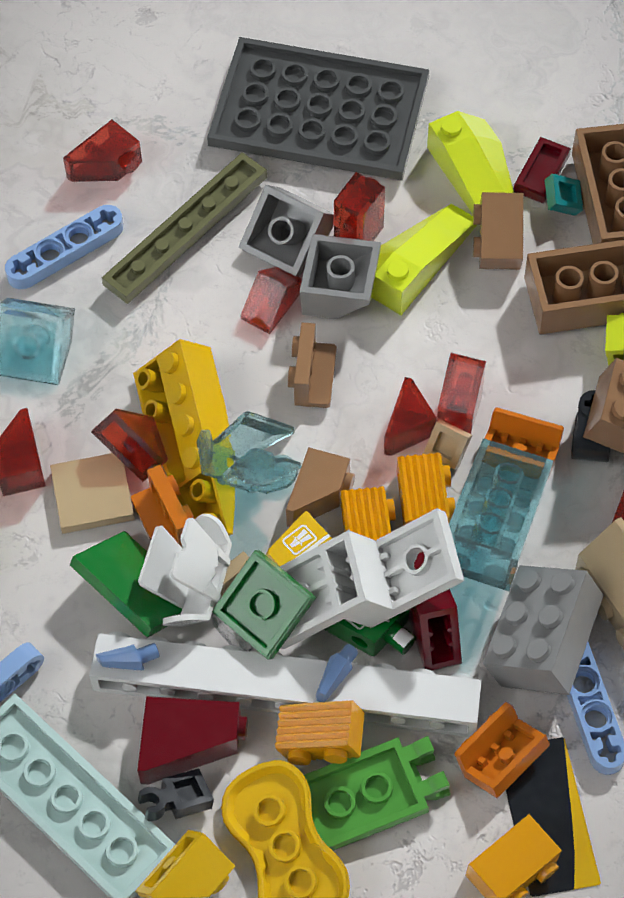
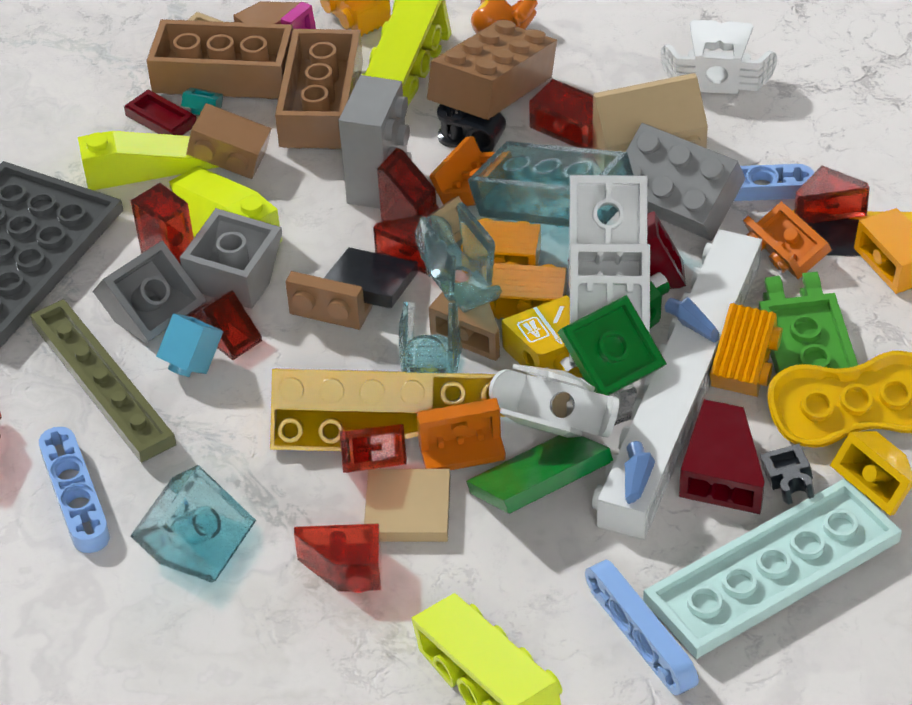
camera: 75 degrees left, 15 degrees down
(228, 276) = (189, 345): none -> medium azure brick
(355, 394) = (379, 275): none -> black tile
(369, 448) = (444, 257): none -> clear light blue piece
(512, 341) = (369, 133): none -> light grey brick
(578, 781) = (831, 196): none -> clear red slope

